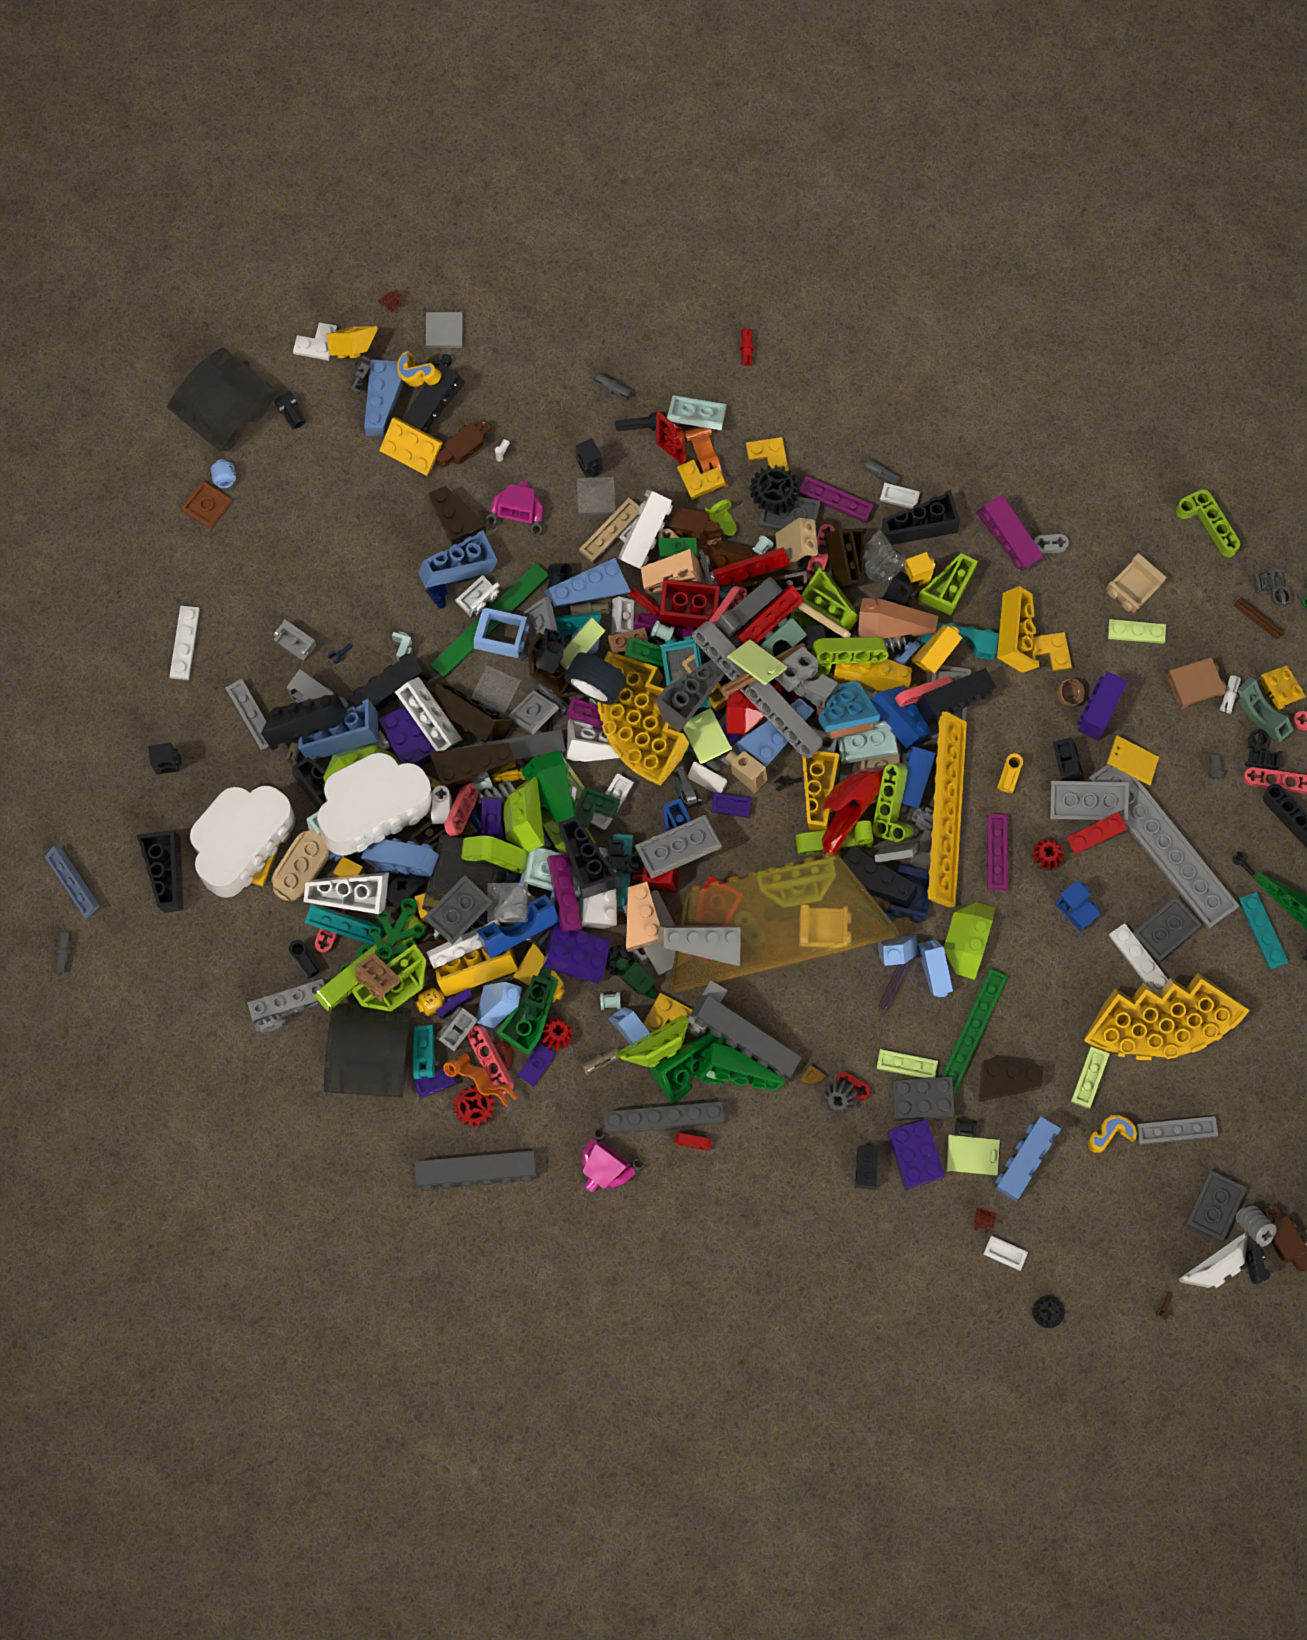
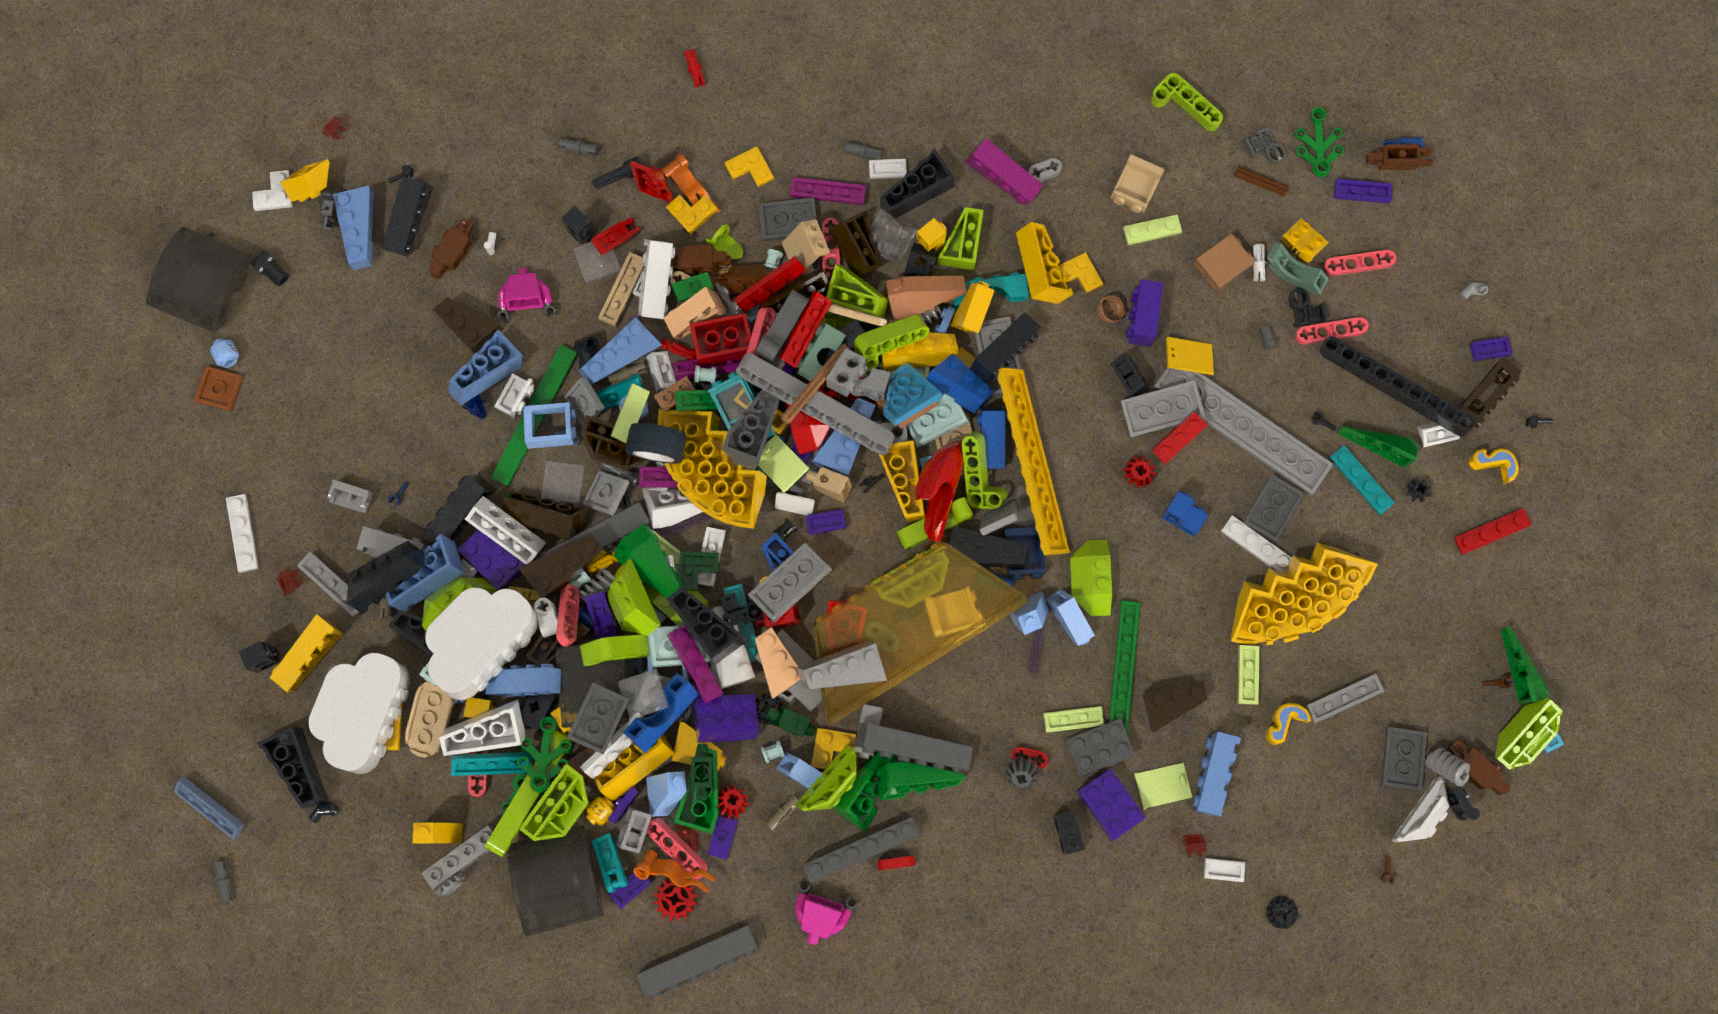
camera: 20 degrees left, 5 degrees up
(176, 917) = (323, 809): none -> black arm
(207, 769) = (306, 653): none -> yellow wedge
(210, 700) = (287, 583): none -> clear red tile
(273, 971) = (437, 833): none -> yellow slope
(305, 959) = (465, 810): black piece -> none
(376, 976) = (539, 809): medium nougat bracket -> none
(405, 646) = (460, 466): light aqua bracket -> none
(410, 446) = (400, 267): yellow plate -> none
(416, 375) = (381, 196): yellow animal -> none
(444, 329) = (395, 141): light grey tile -> none
(550, 651) = (603, 430): black slope -> none
(616, 763) = (685, 524): none -> axle
(620, 479) = (614, 236): none -> red hinge
(683, 787) = (775, 520): dark grey piece -> none
(697, 412) = (667, 147): light aqua tile -> none
(757, 662) = (807, 378): yellowish green container -> none
(780, 501) = (774, 188): black gear -> none
(812, 1076) = (988, 760): pearl gold tile -> none
(914, 694) = (967, 360): coral beam -> none
(923, 818) = (1012, 476): light grey gear -> none
(965, 1128) = (1148, 762): black bush -> none
(997, 852) = (1091, 485): magenta plate -> none
(1009, 774) = (1079, 408): yellow piece -> none

